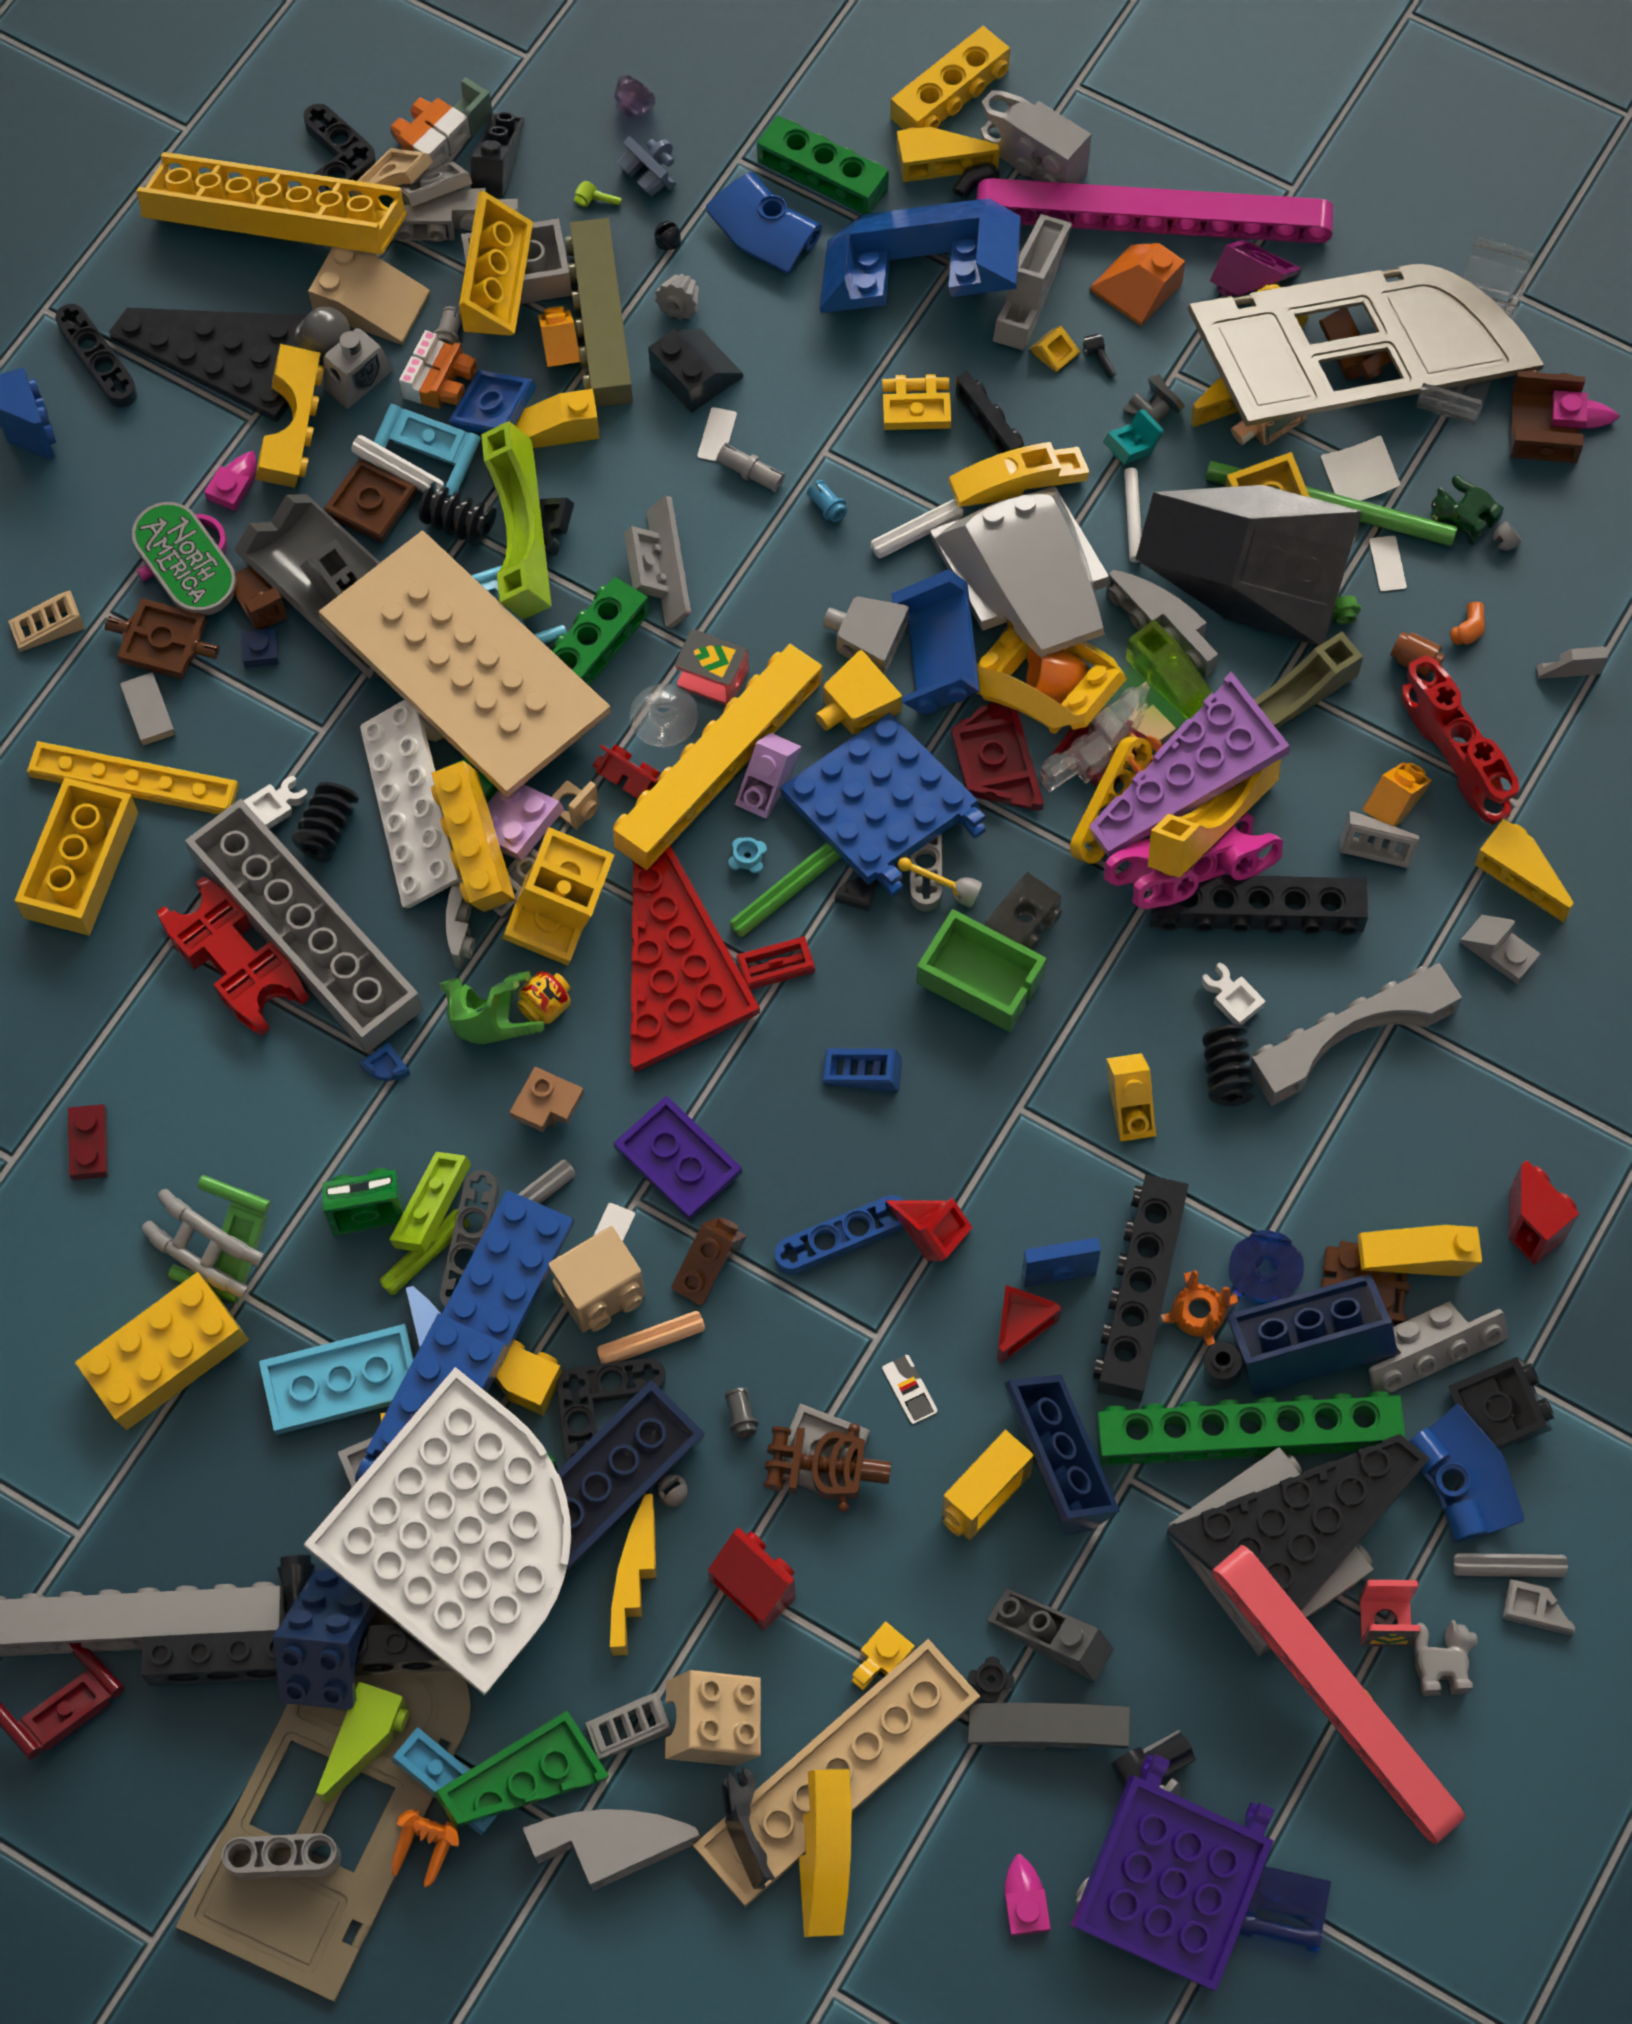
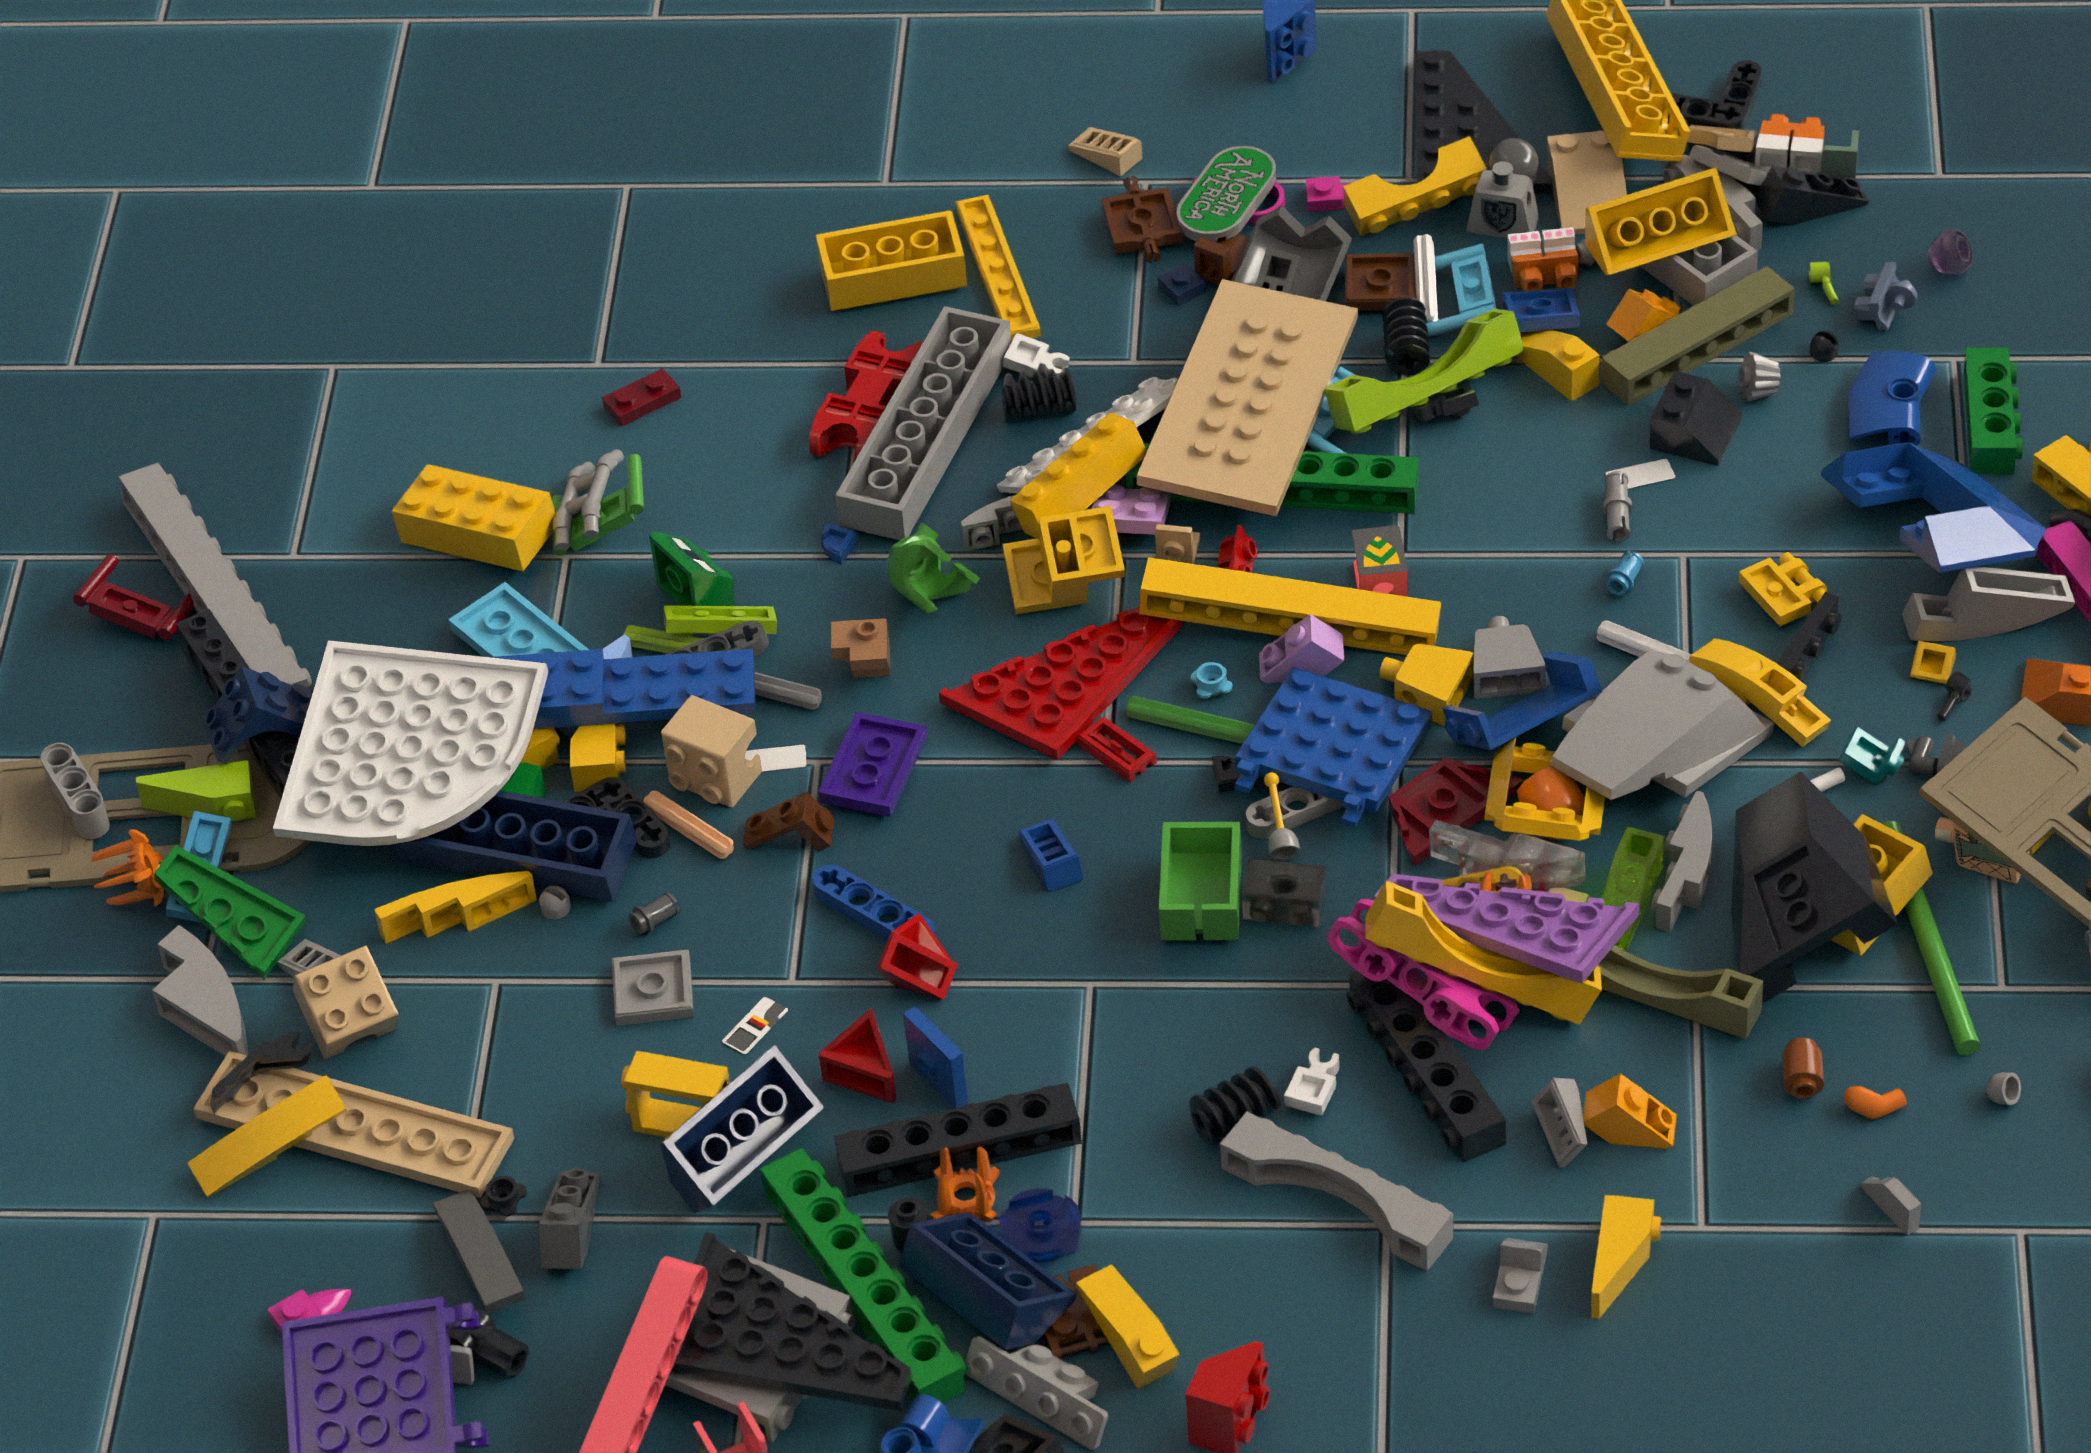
camera: 65 degrees right, 20 degrees down
(99, 353) = (1383, 55): black beam -> none
(147, 709) = (1070, 245): light grey tile -> none
(544, 997) = (968, 608): yellow head -> none
(658, 563) = (1460, 481): light grey bracket -> none
(668, 727) = (1317, 563): clear dish -> none
(753, 1578) = (496, 982): red slope -> none
(862, 1469) = (635, 984): reddish brown torso -> none
(883, 1653) = (484, 1105): yellow plate -> none
(1131, 1096) = (1150, 1048): yellow slope -> none
(1346, 609) = (1811, 994): bright green plate -> none
(1361, 470) = (1987, 946): white sticker -> none
(1387, 563) = (1899, 1013): white sticker -> none
(1470, 512) = (2003, 1043): dark green animal -> none
(1478, 760) = (1709, 1139): red piece -> none

